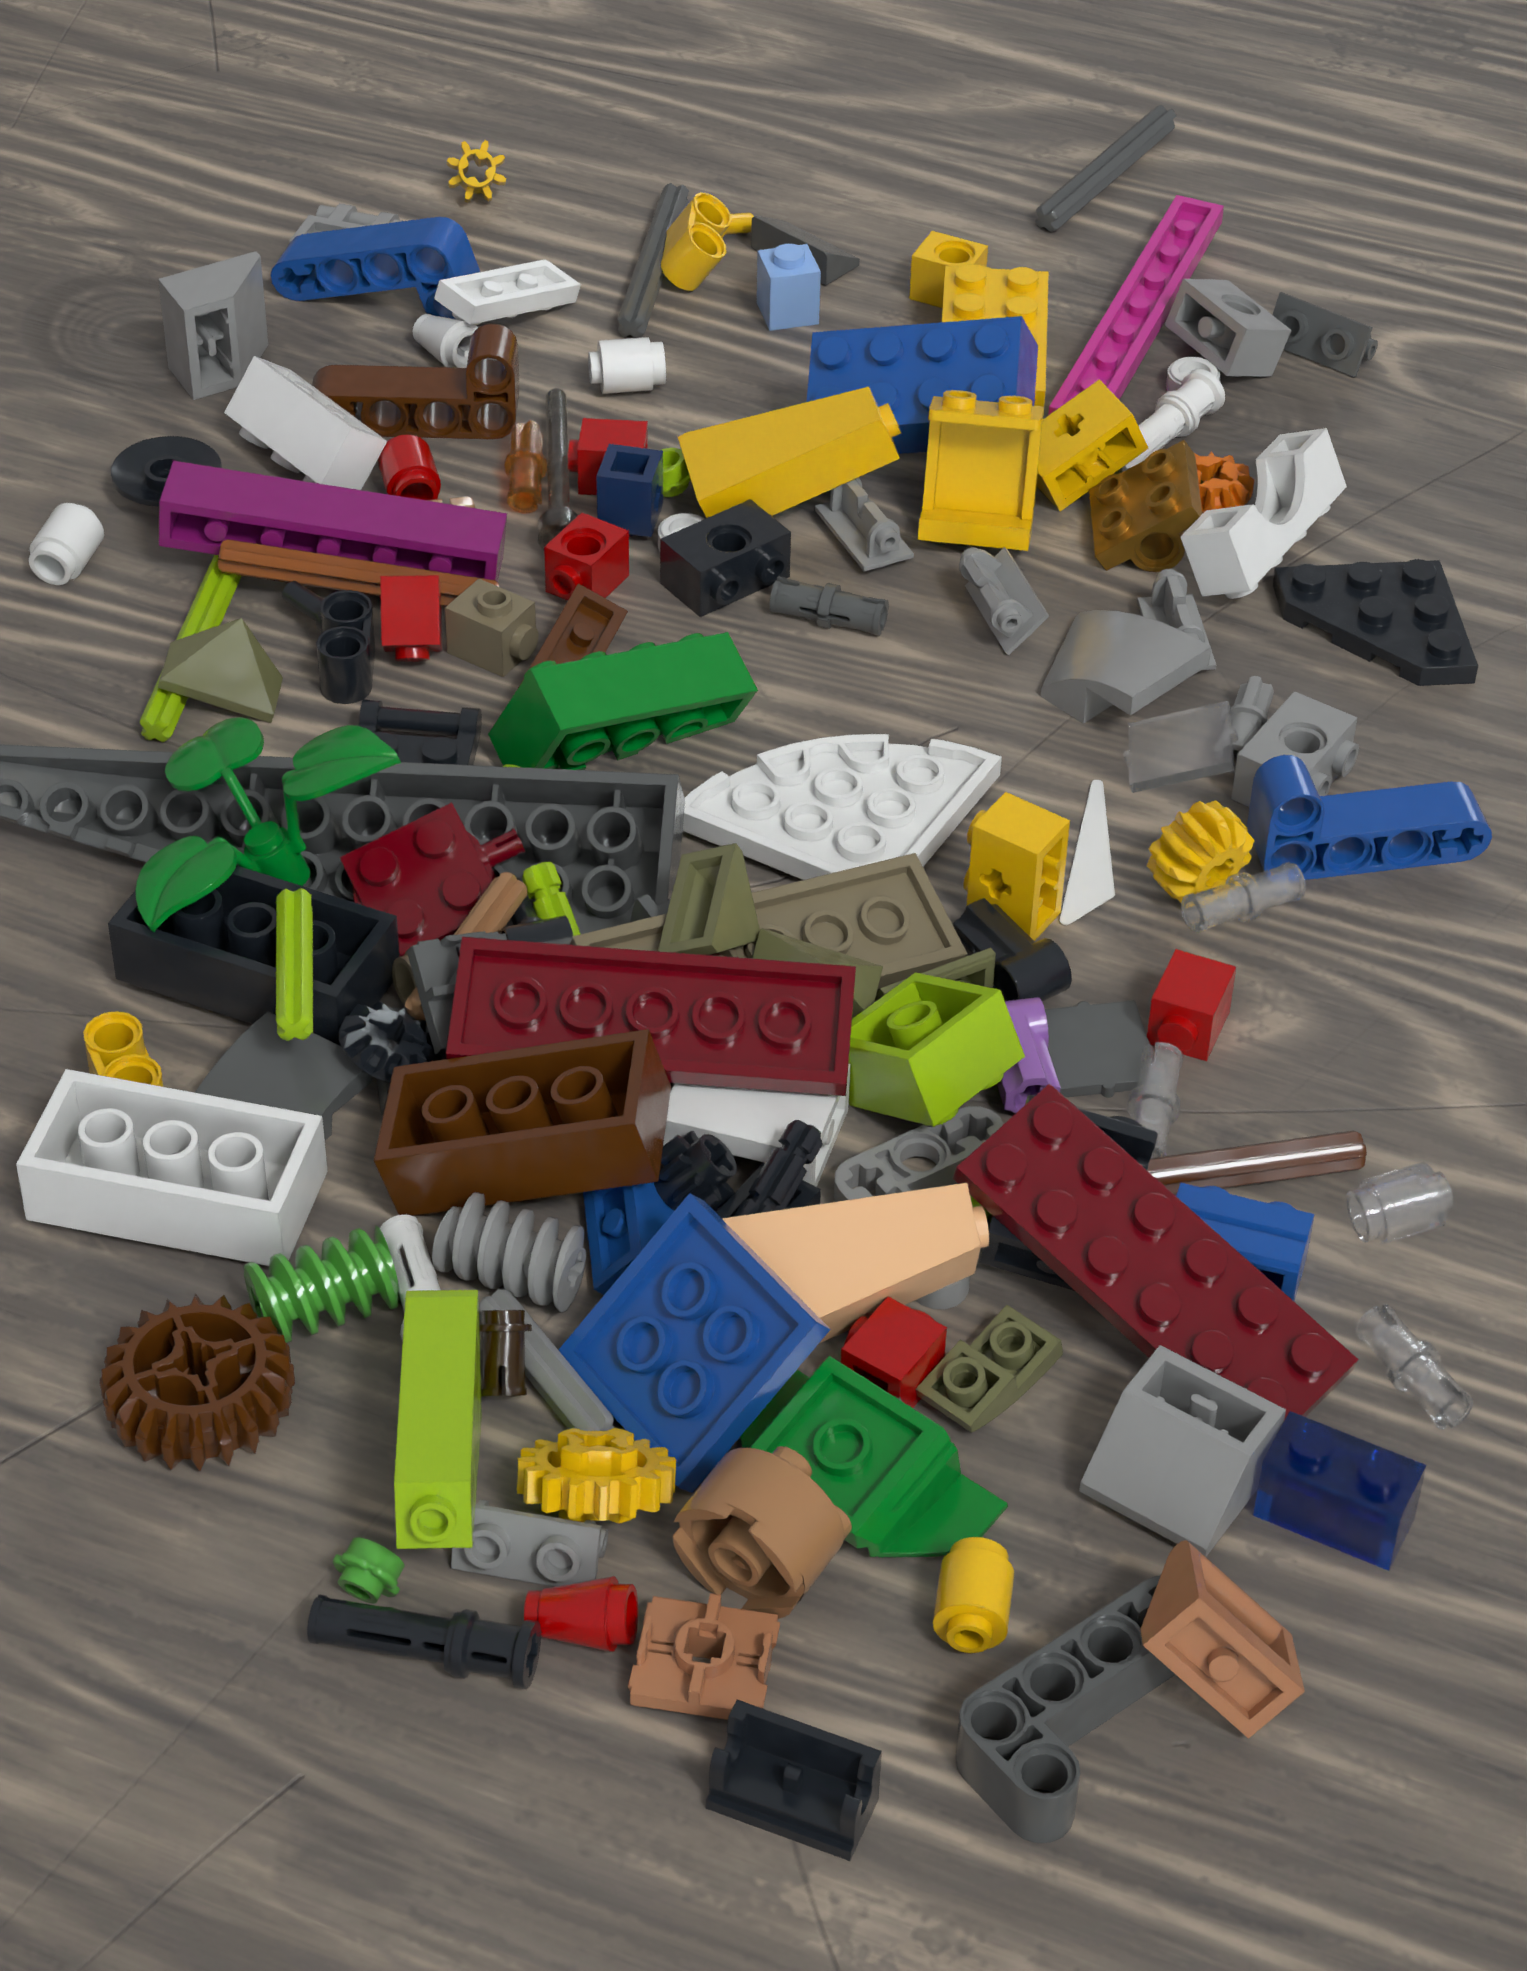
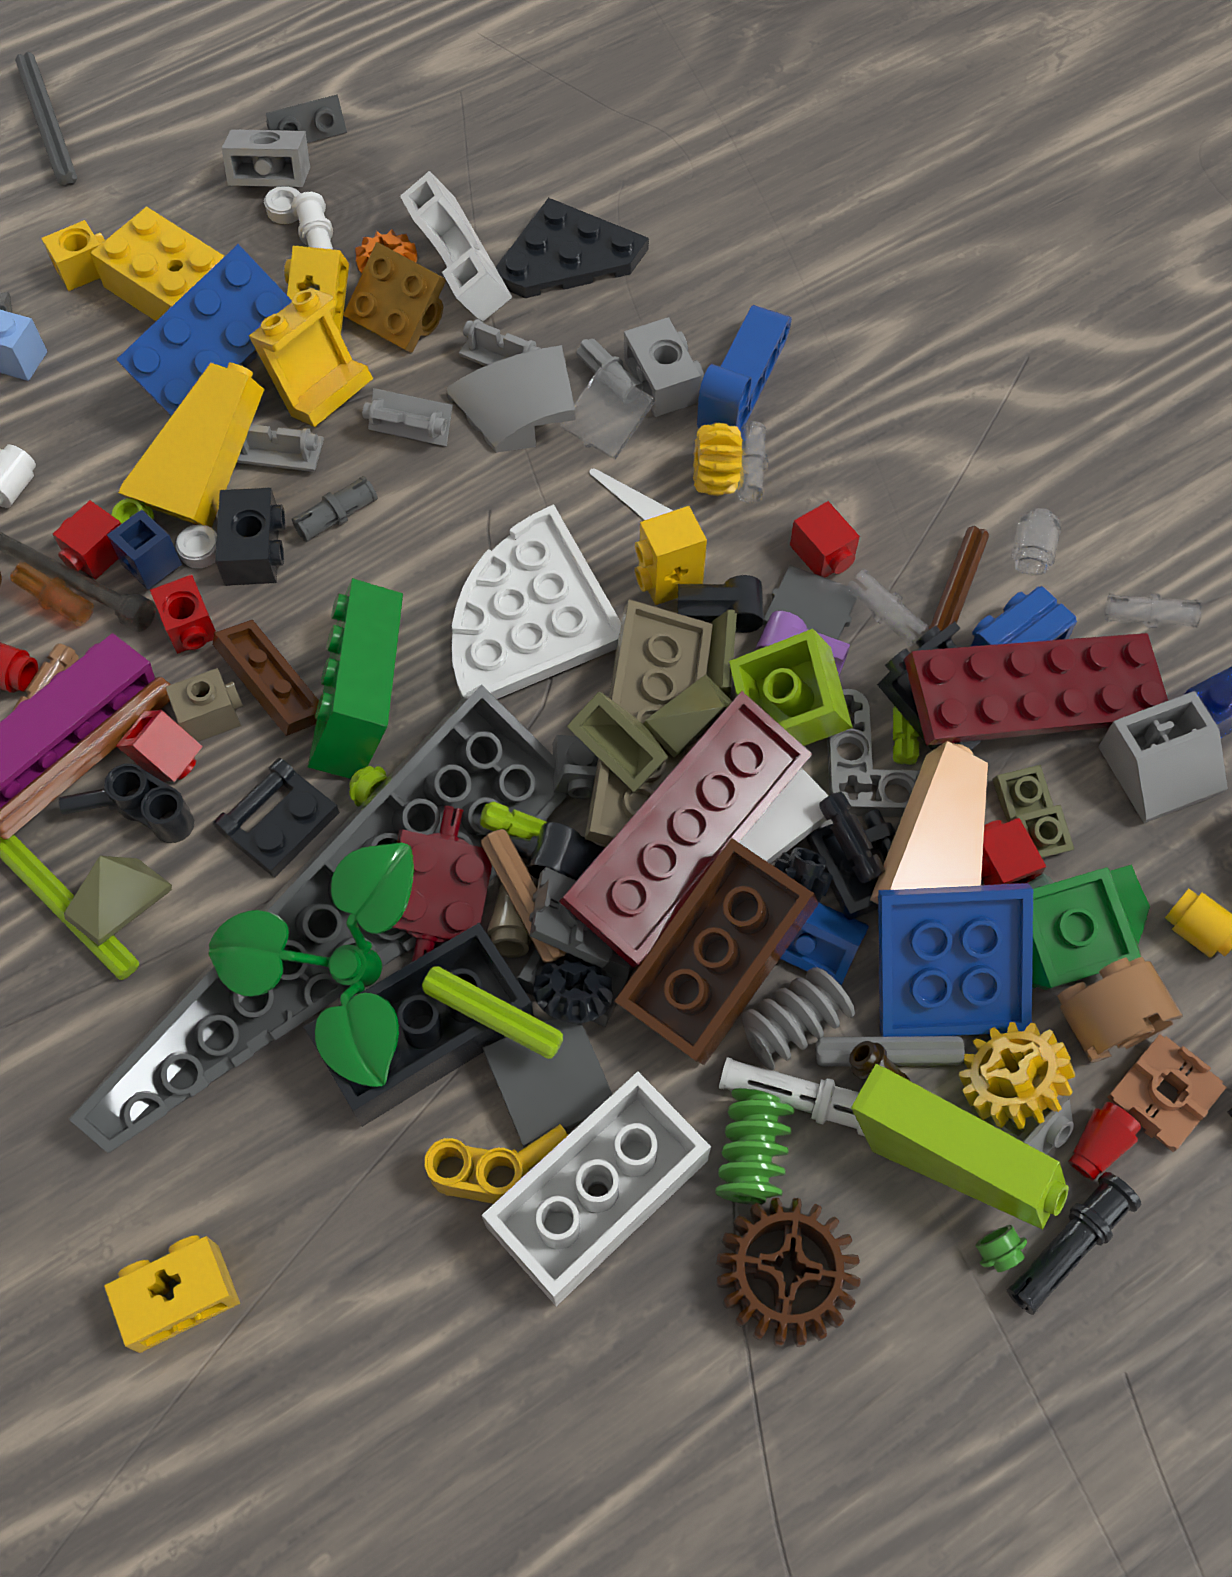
camera: 55 degrees left, 20 degrees up
(1144, 299) = (198, 182): dark pink plate -> none

